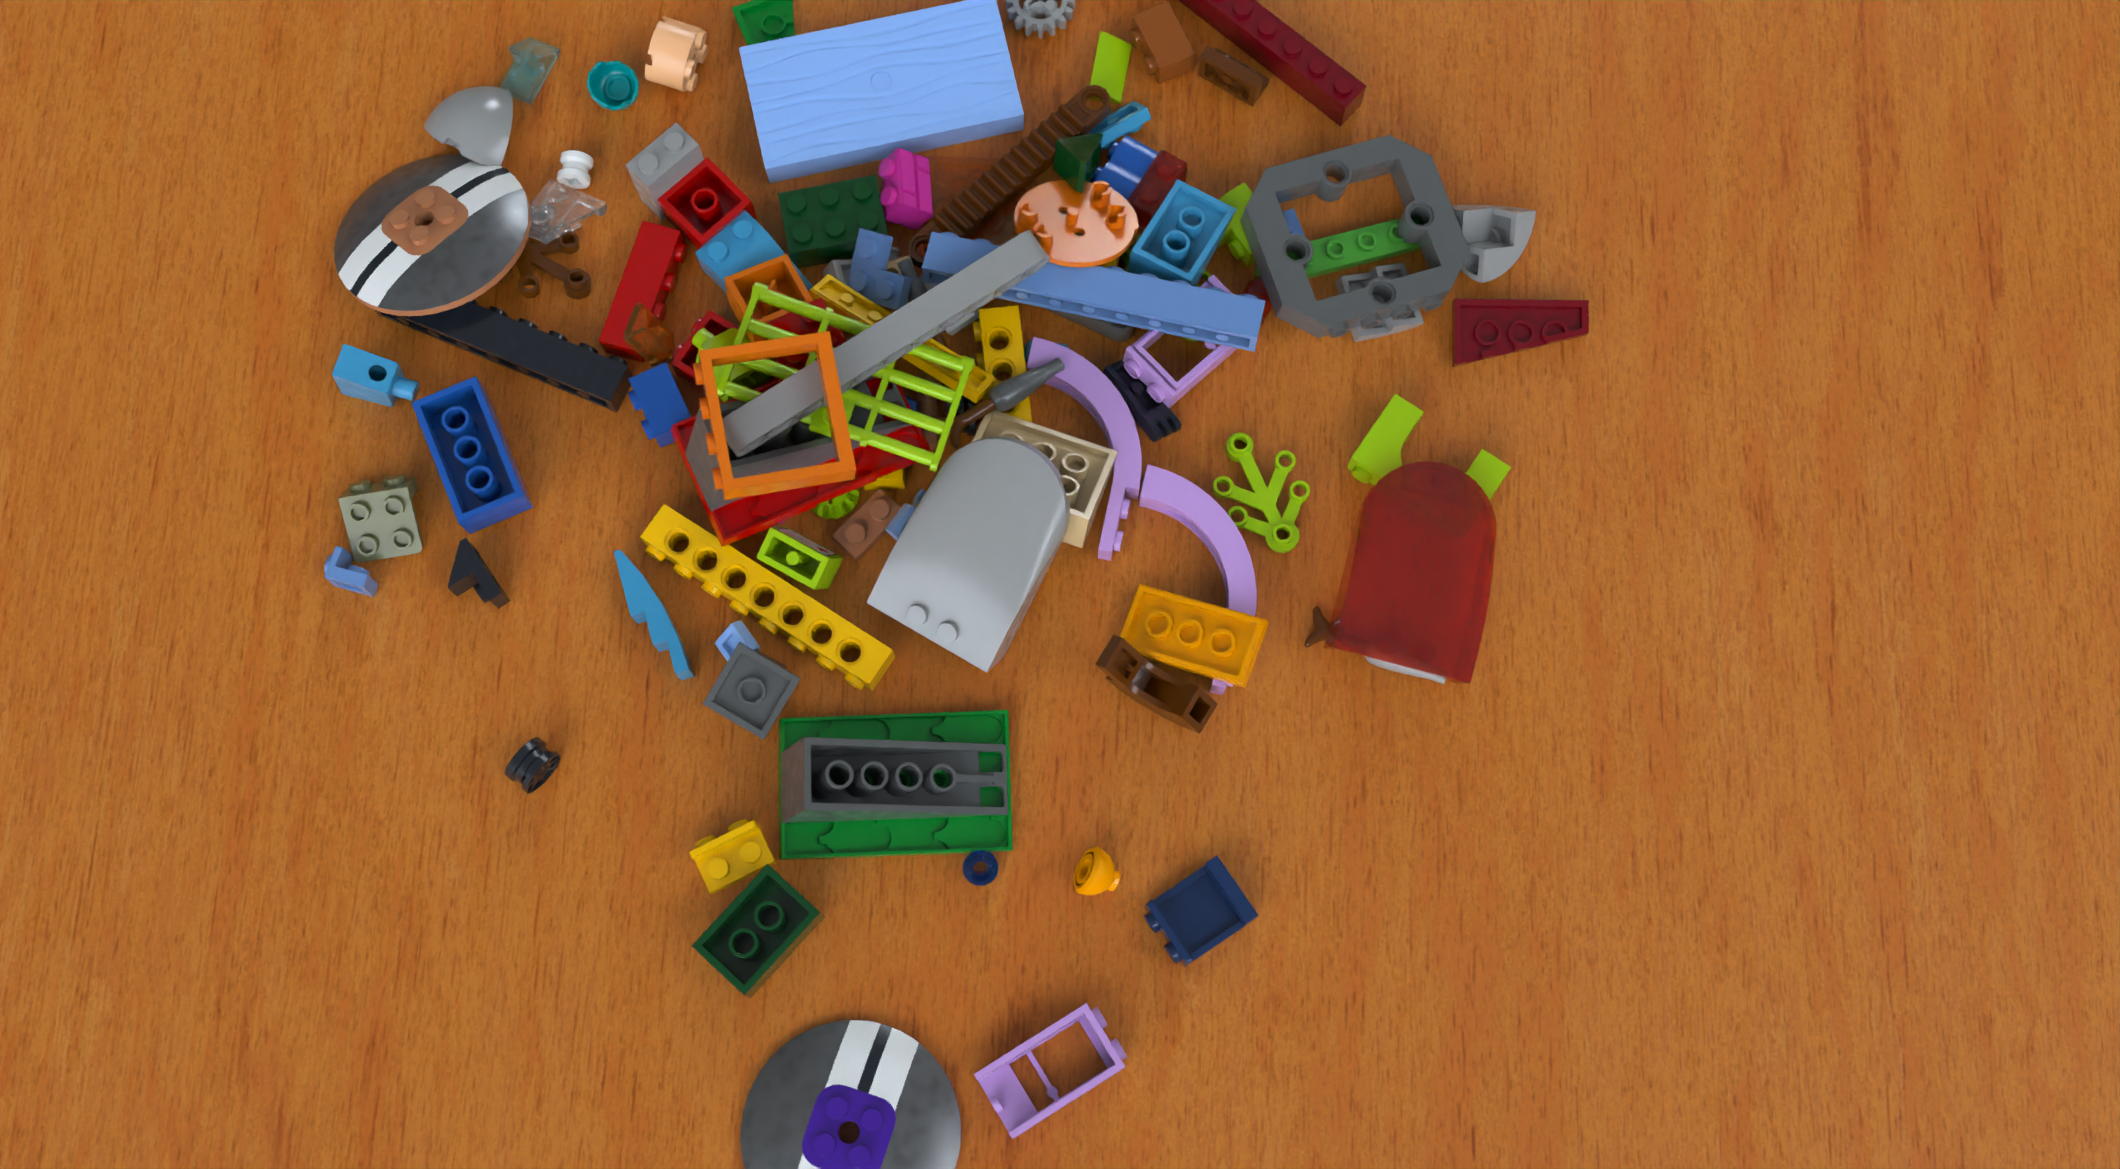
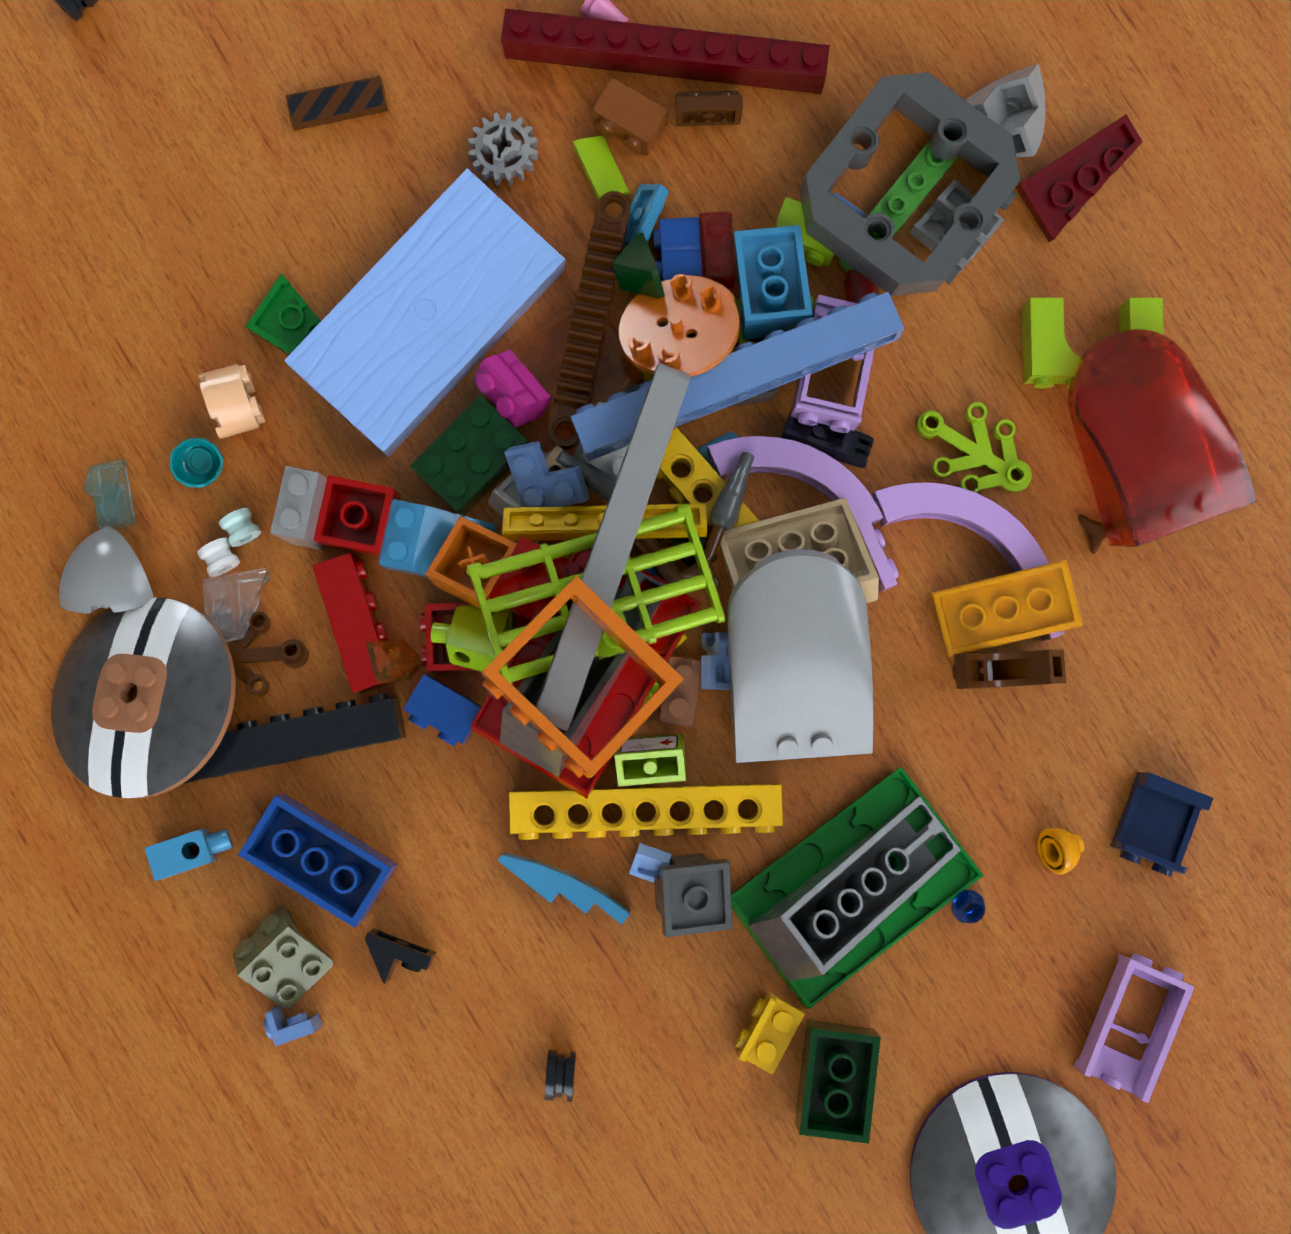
camera: 35 degrees left, 10 degrees up
(609, 157) = (240, 527): none -> light aqua wheel

